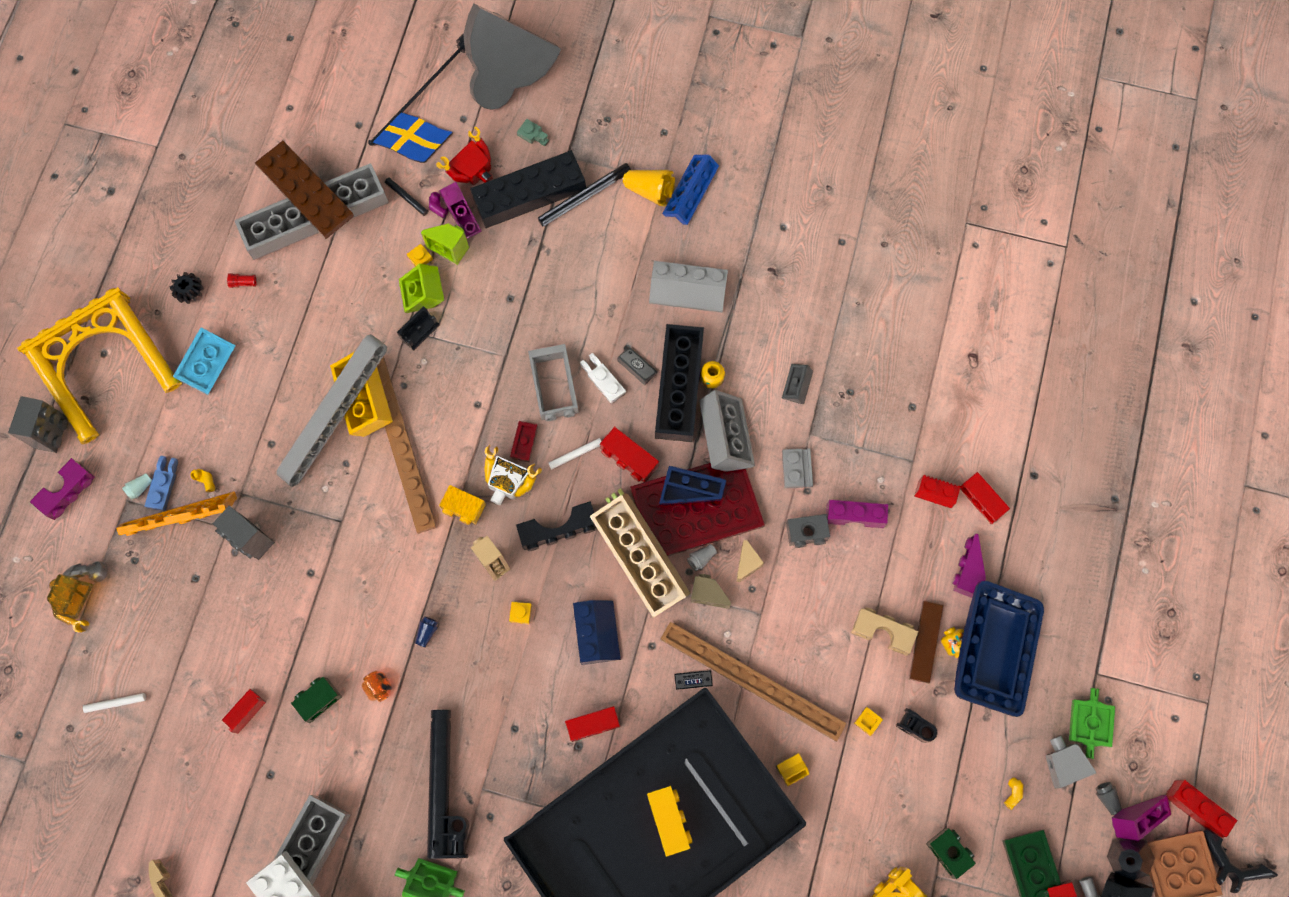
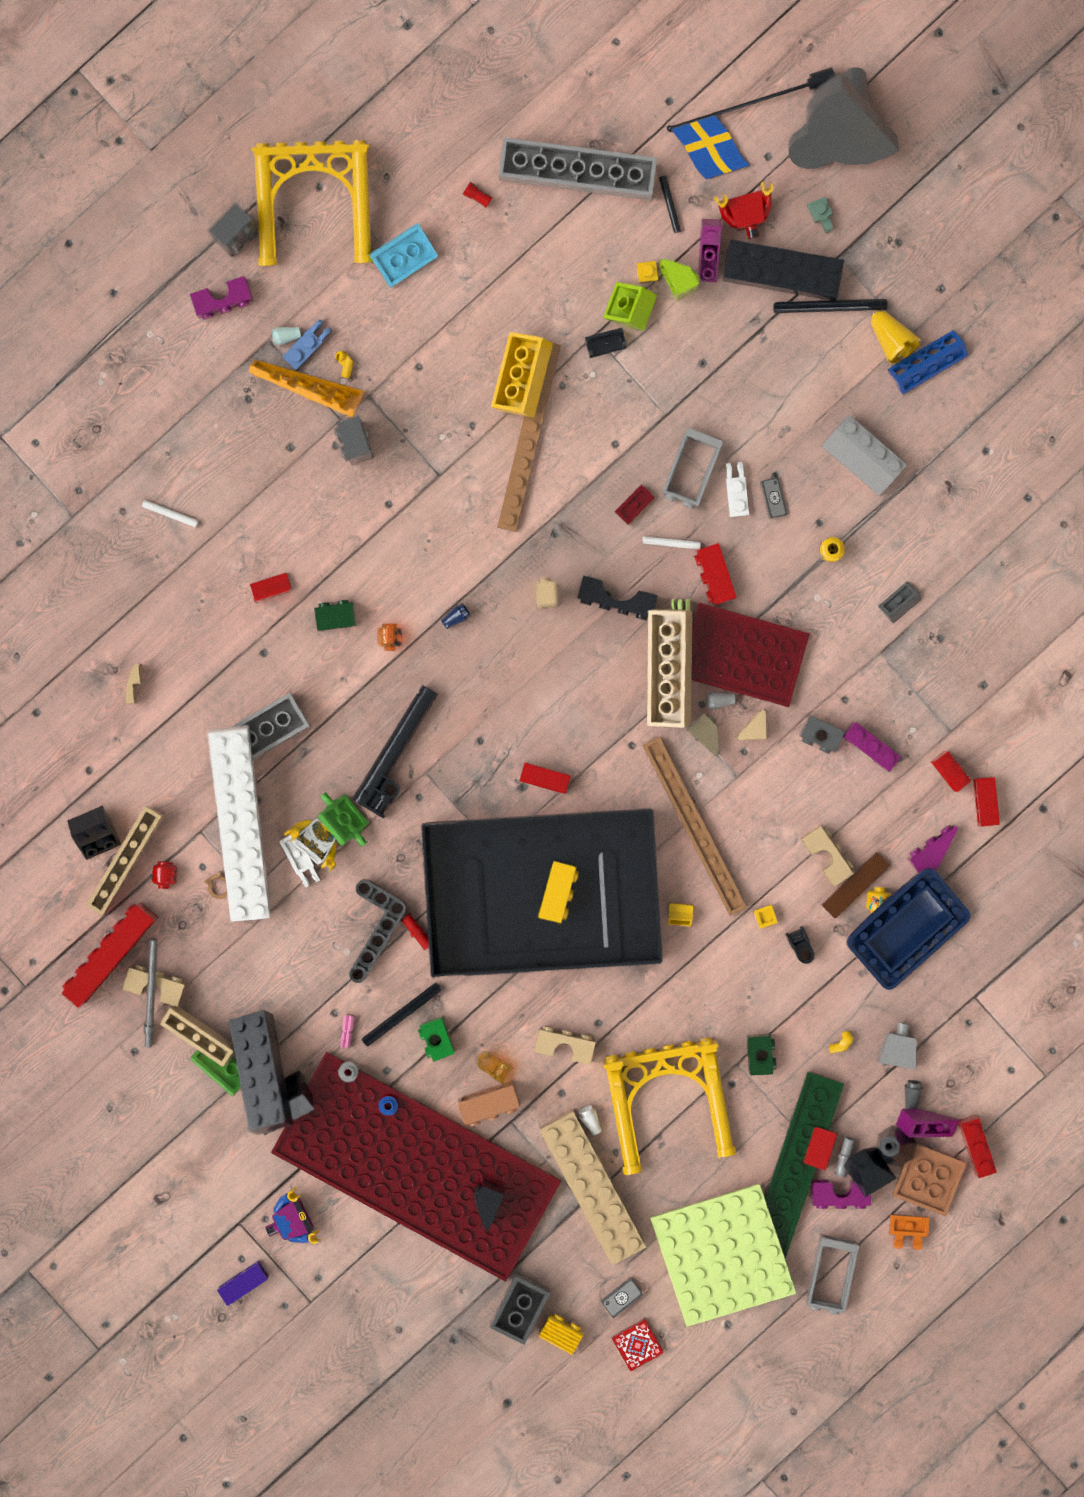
camera: 30 degrees right, 15 degrees up
(70, 593) = (183, 399): clear yellow torso -> none
(186, 287) = (422, 165): black gear -> none
(304, 189) = (582, 147): reddish brown plate -> none
(331, 410) = (489, 377): light grey beam -> none
(435, 205) = (690, 230): magenta arm -> none
(462, 505) = (549, 528): yellow brick -> none
(507, 477) = (601, 528): torso -> none
(520, 612) = (541, 650): yellow plate -> none
(596, 631) = (594, 706): dark blue slope -> none
(679, 383) = (798, 539): black brick -> none
(690, 487) = (748, 638): dark blue wedge -> none
(693, 679) = (648, 794): sticker -> none
(726, 432) = (810, 608): light grey slope -> none
(797, 468) = (849, 675): light grey plate -> none
(1092, 723) = (941, 1031): bright green plate -> none
(1226, 869) = (963, 1200): black piece -> none

